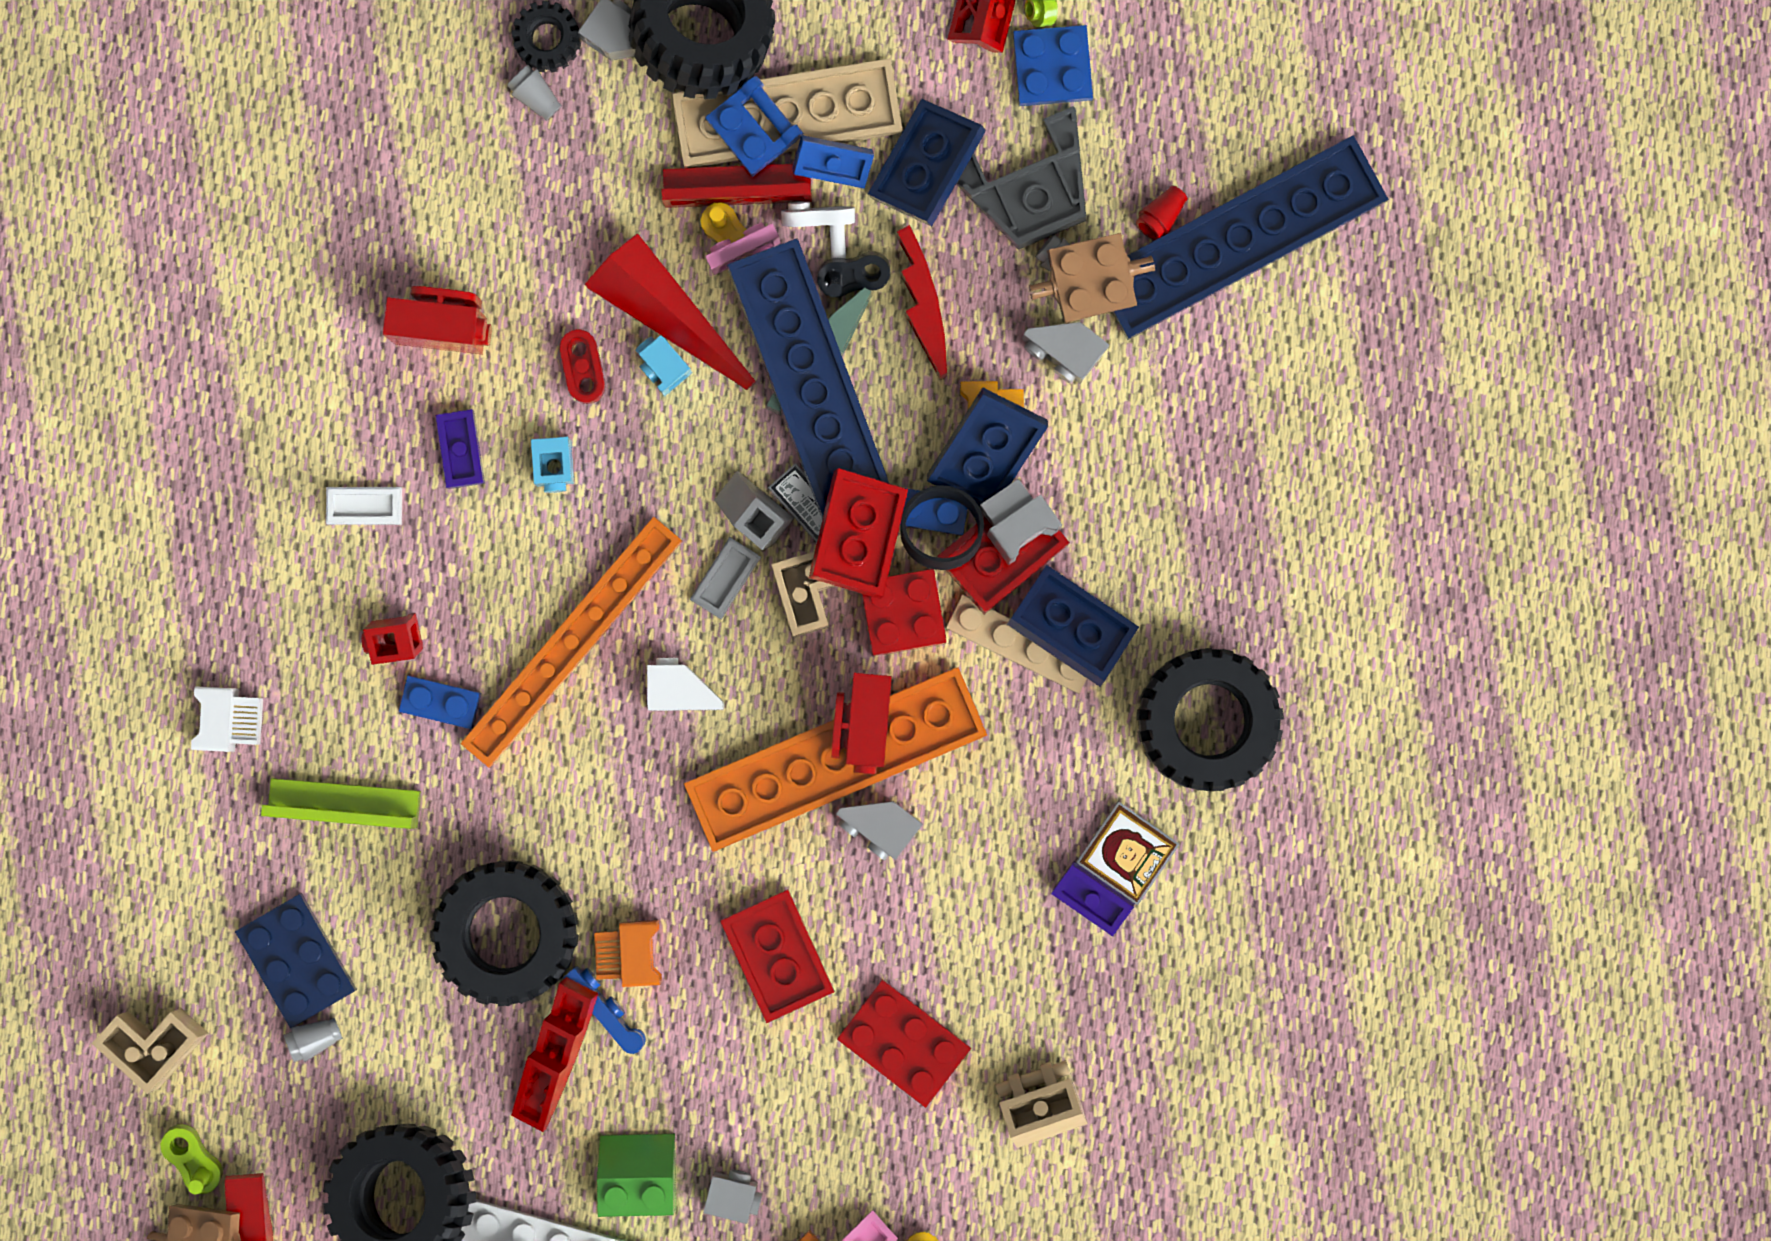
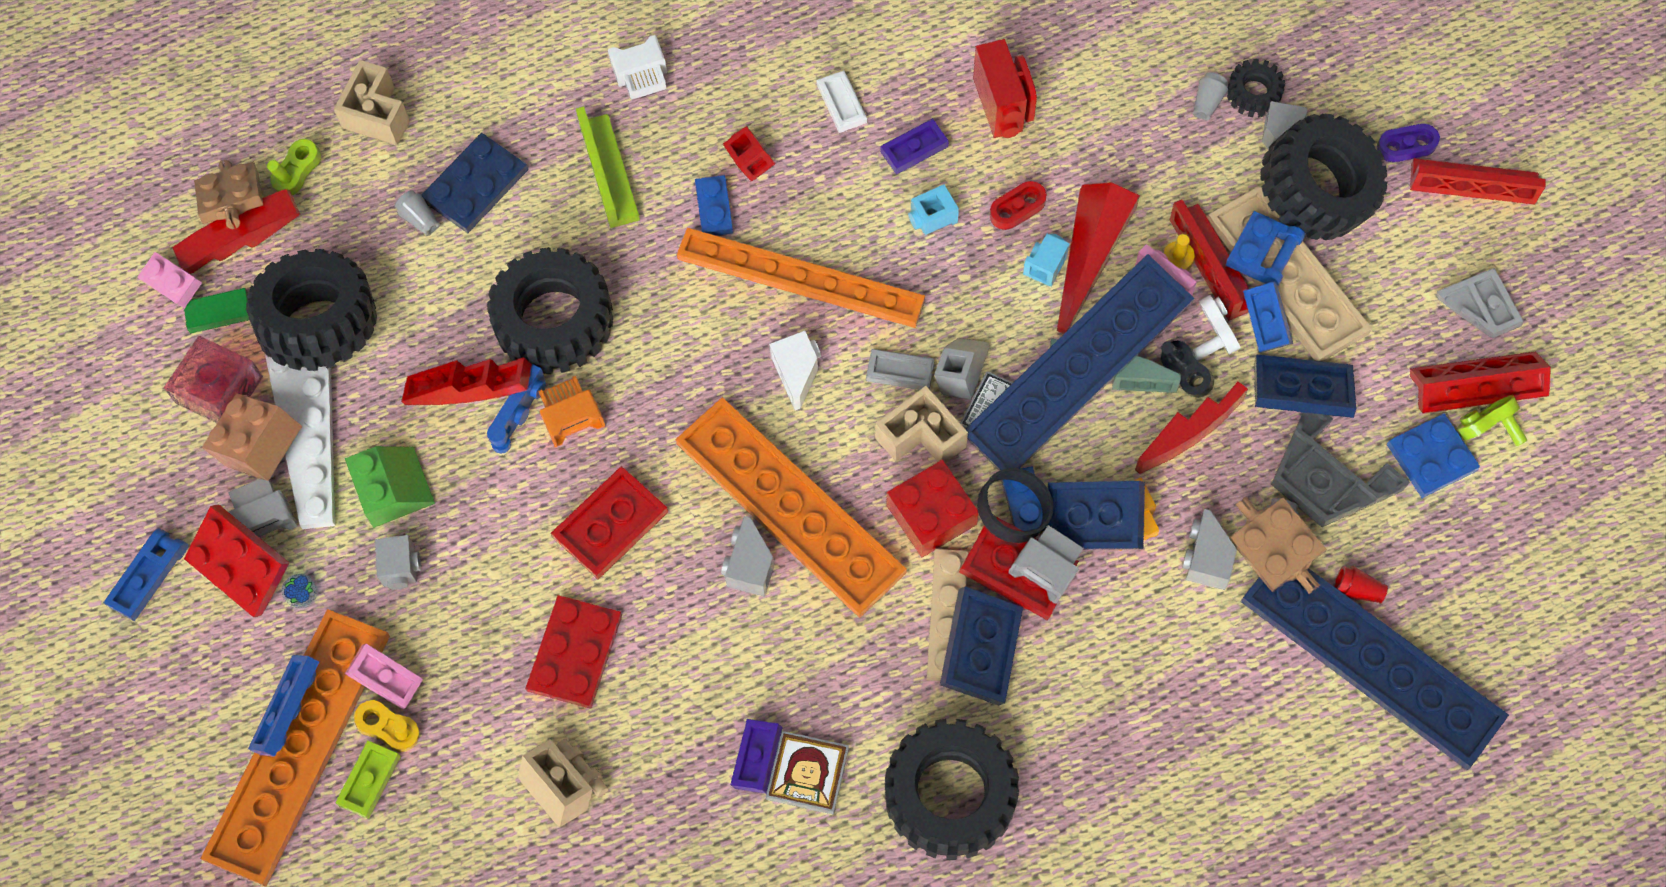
camera: 70 degrees right, 20 degrees down
(858, 533) = (980, 437): red plate -> none
(863, 723) = (828, 500): red brick -> none

